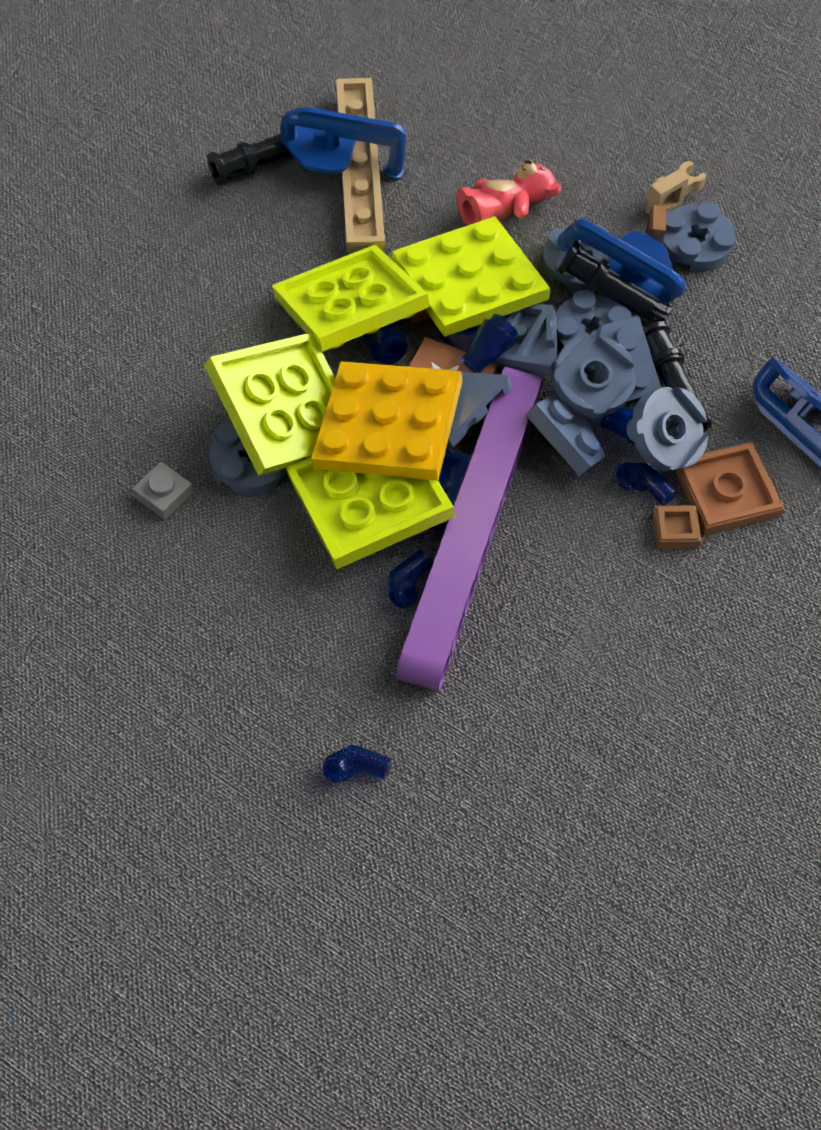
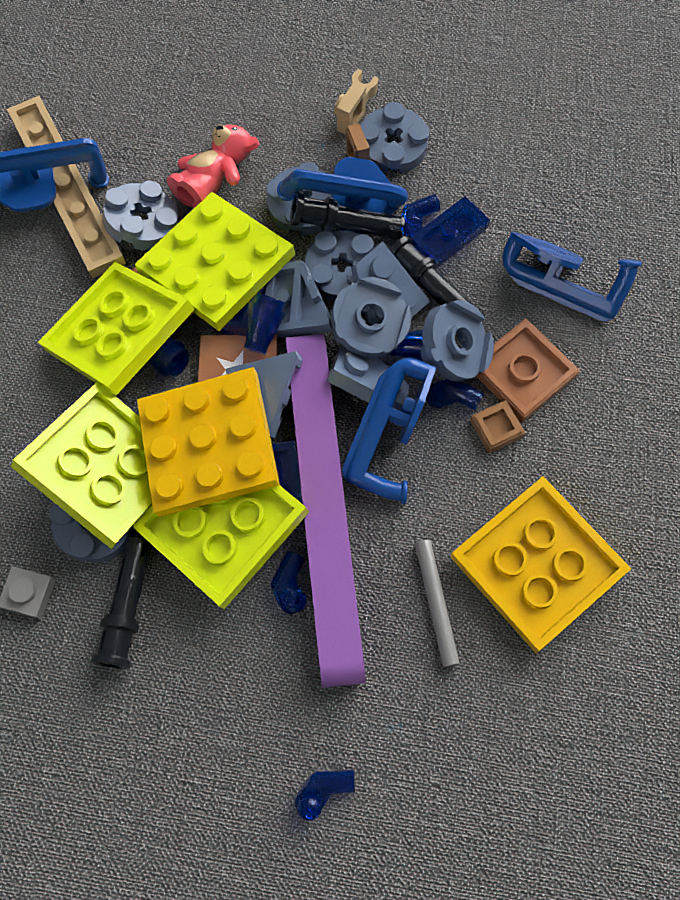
camera: 20 degrees left, 10 degrees up
(236, 546) = (120, 622): none -> black pin
(408, 196) = (139, 198): none -> plate
(540, 655) = (437, 604): none -> light grey bar
(555, 466) = (374, 421): none -> blue piece
(659, 659) = (539, 563): none -> yellow plate
(686, 309) = (416, 211): none -> clear blue arm
(714, 337) = (450, 231): none -> clear blue plate

